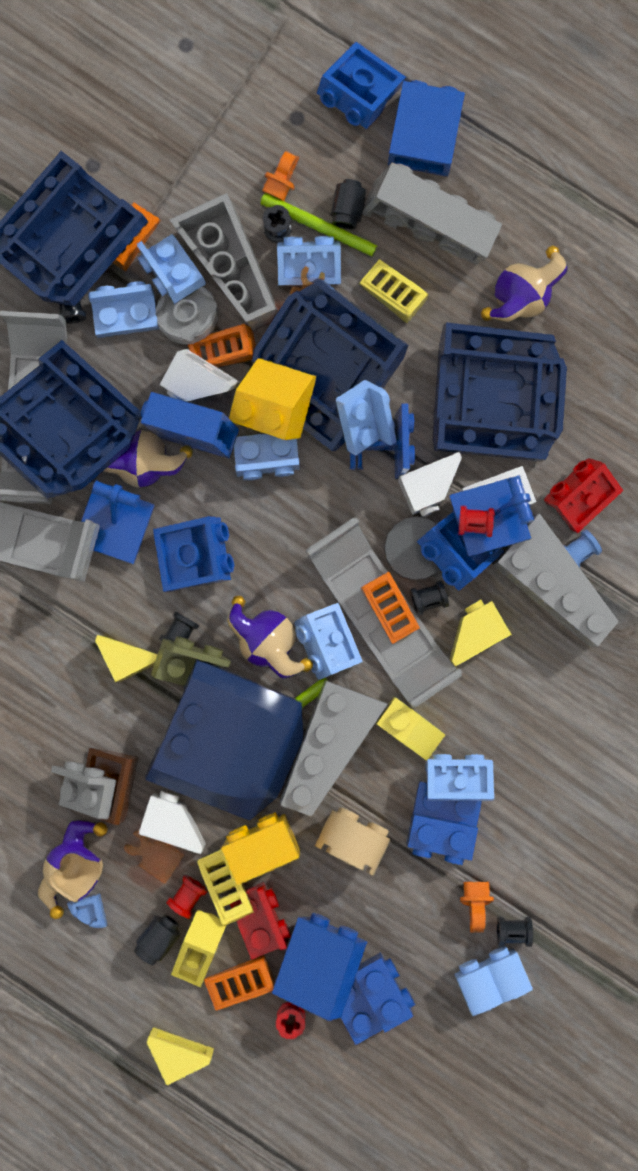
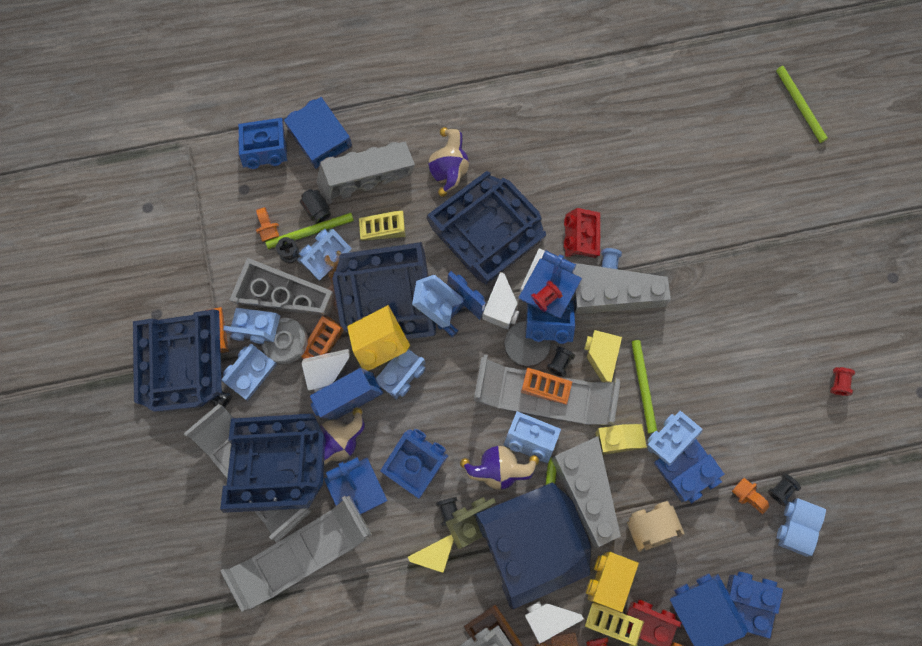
camera: 45 degrees left, 10 degrees down
(485, 702) = (644, 386): none -> lime bar

